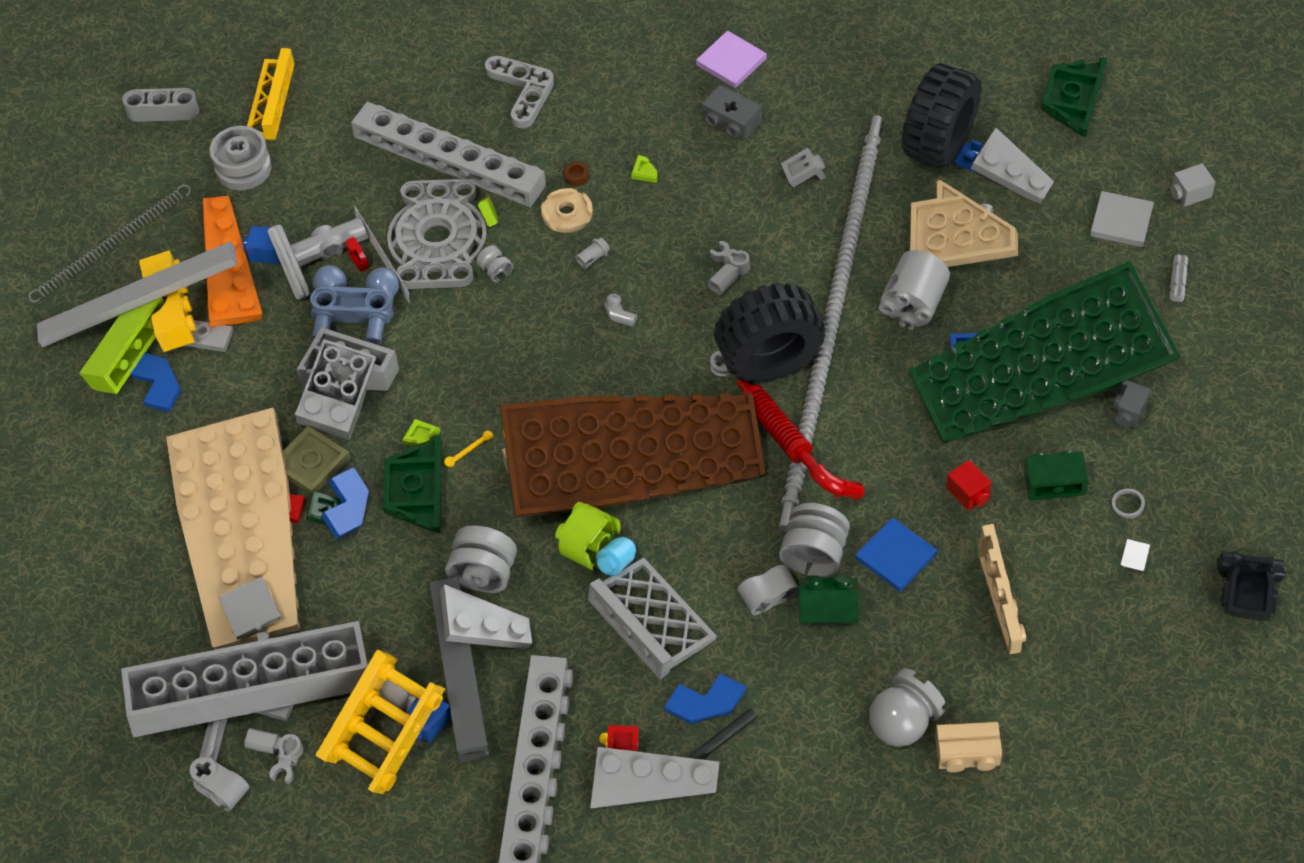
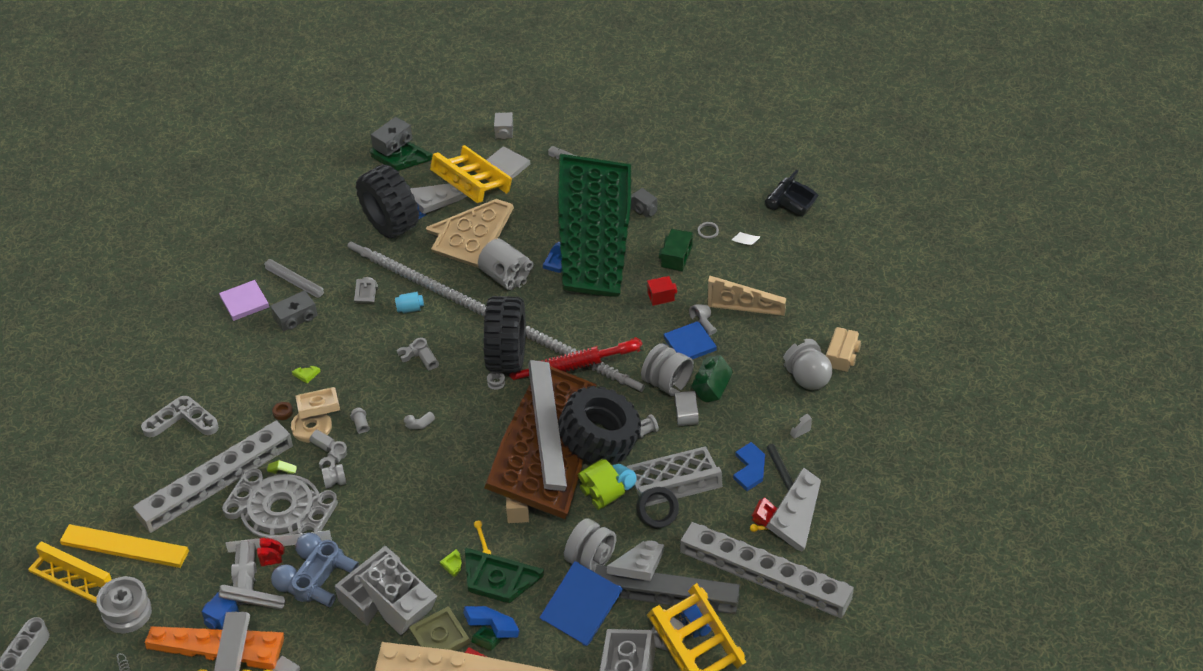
camera: 70 degrees left, 10 degrees down
(326, 124) = (124, 546): none -> yellow tile
(369, 250) = (273, 544): none -> red tile
(401, 584) = (581, 603): none -> blue piece
(535, 250) = (337, 450): none -> light grey bar
(558, 606) = (673, 502): none -> black tyre
(597, 199) = (317, 402): none -> tan tile
(642, 437) = (547, 426): none -> light grey tile
(697, 470) = (607, 409): none -> black tyre
(706, 551) = (648, 425): none -> light grey bush
(791, 90) = (294, 278): none -> light grey axle
(801, 740) = (803, 427): none -> light grey tile
(806, 219) = (409, 302): none -> medium azure brick
(952, 549) = (703, 313): none -> light grey bar
(1043, 184) = (465, 182): none -> yellow fence
(1083, 72) = (391, 136): none -> dark grey brick

